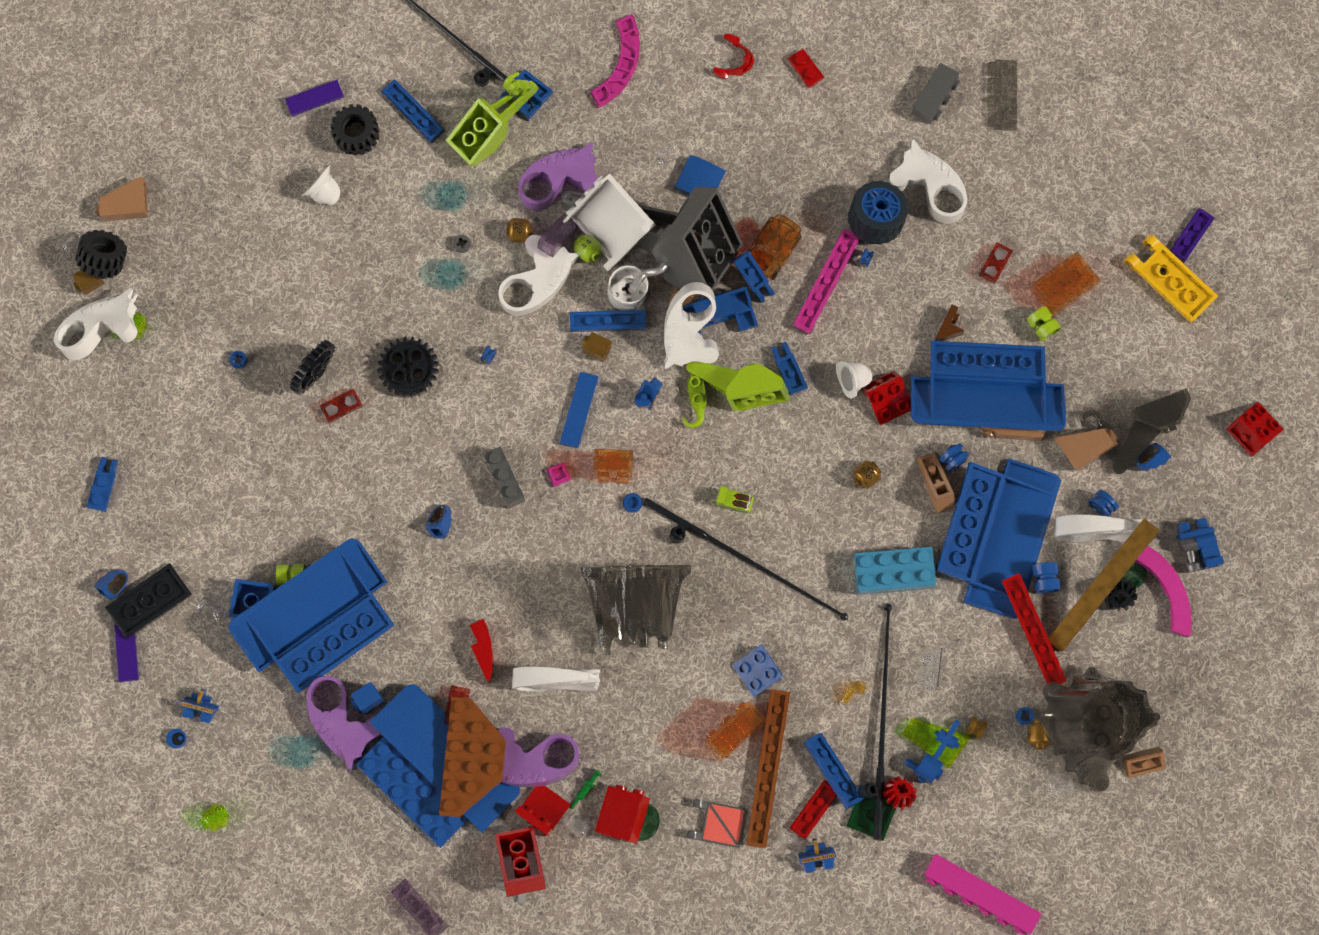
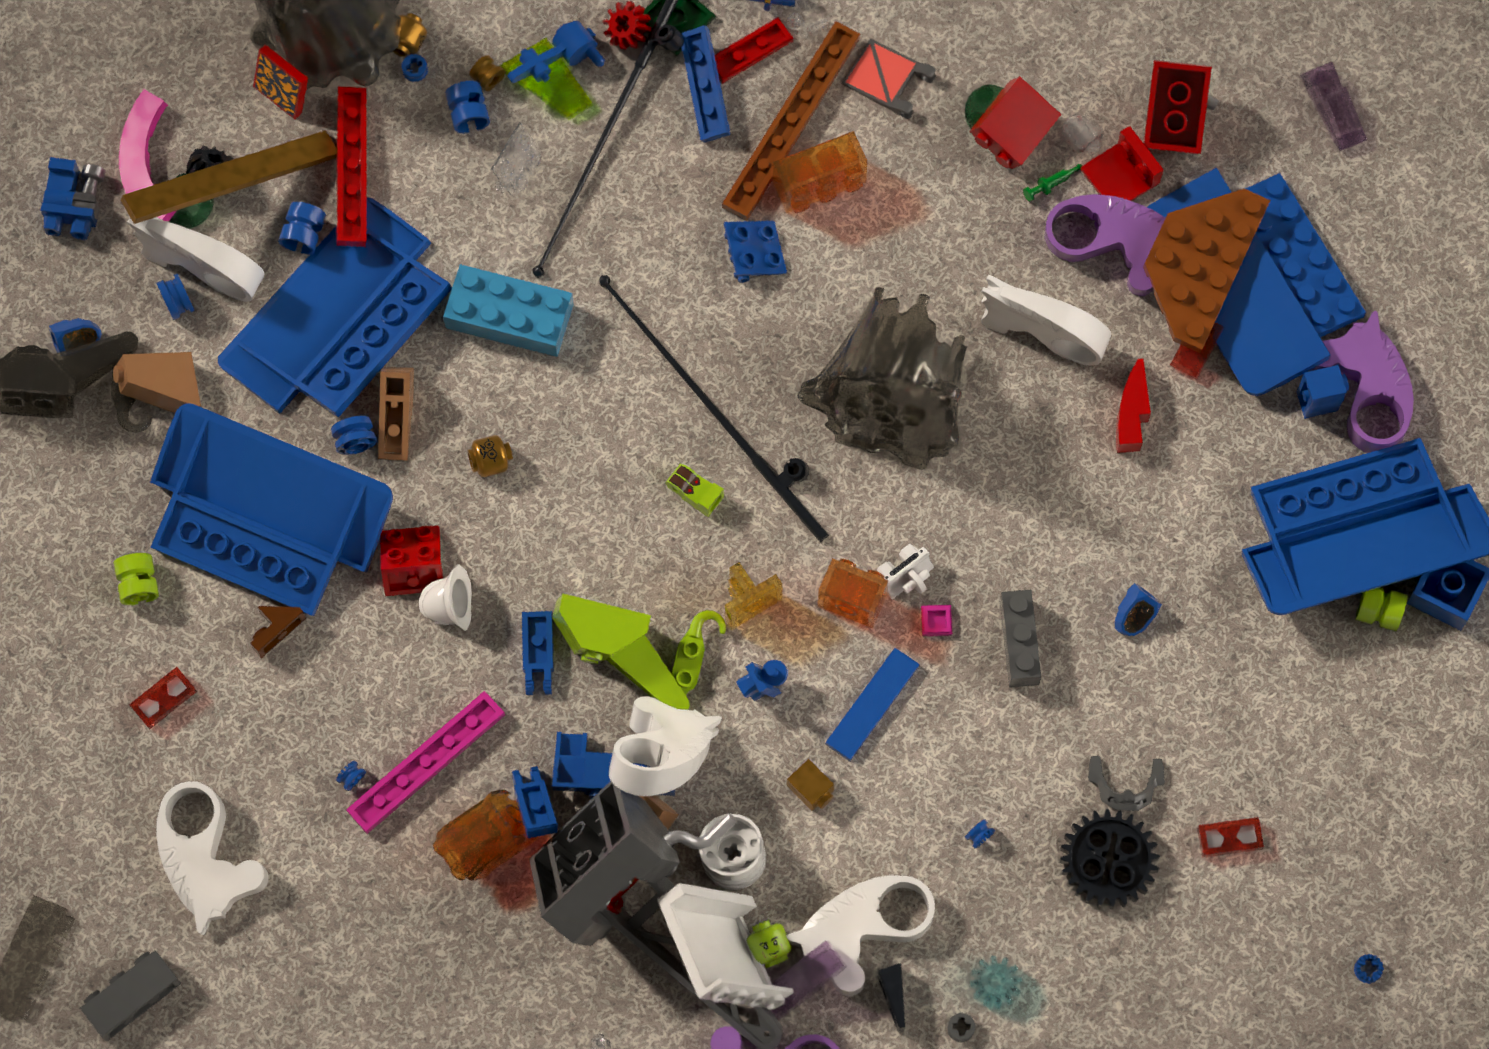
camera: 160 degrees left, 5 degrees down
(295, 756) = (1442, 370): clear light blue gear -> none
(312, 367) = (1259, 893): black gear -> none
(407, 402) = (1126, 800): none -> dark grey helmet
(509, 250) = (892, 988): none -> black slope
(519, 230) = (865, 1011): pearl gold head -> none
(592, 488) = (909, 573): none -> white hips
(607, 320) = (783, 821): blue plate -> none
(632, 503) = (843, 541): blue tile -> none
(675, 440) = (748, 598): none -> clear yellow bracket
(698, 174) = (552, 995): blue slope -> none
(851, 689) = (639, 178): clear yellow arm -> none
(878, 212) = (282, 829): black wheel -> none
(985, 699) = (466, 103): none -> blue wheel
(1065, 284) = (77, 624): clear orange brick -> none
(1104, 667) = (280, 82): none -> tile

